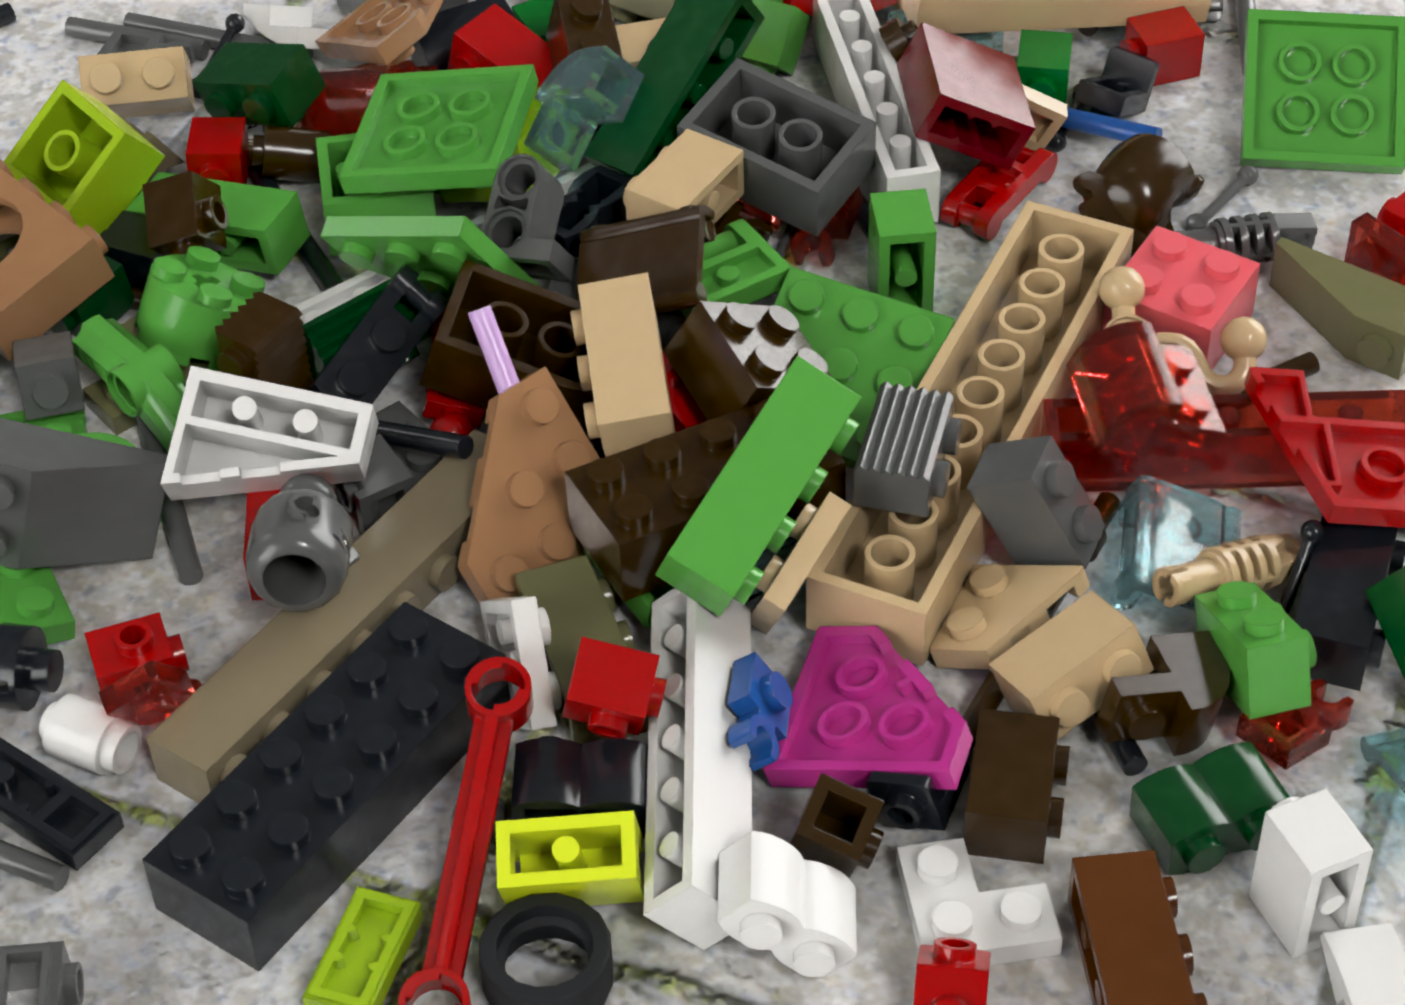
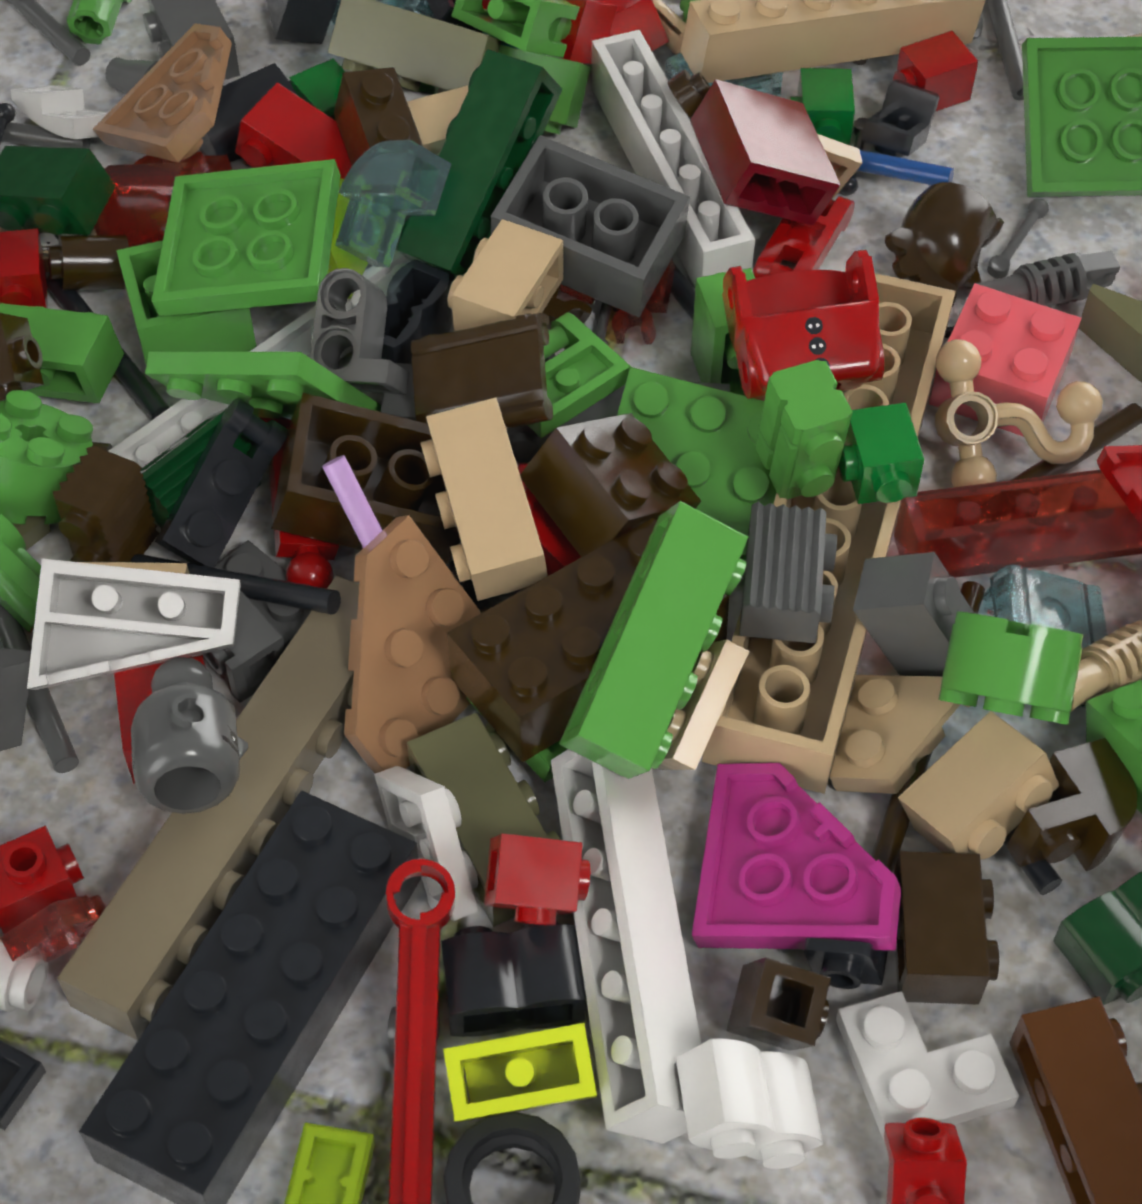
camera: 10 degrees left, 10 degrees up
(762, 706) = (681, 868): blue plate -> none
(943, 322) = (803, 429): none -> bright green brick
(965, 244) = (805, 318): none -> red piece
(1022, 356) = (882, 454): none -> green brick
(1116, 545) = (1011, 667): none -> bright green brick
(1142, 392) = (1004, 485): clear red brick -> none

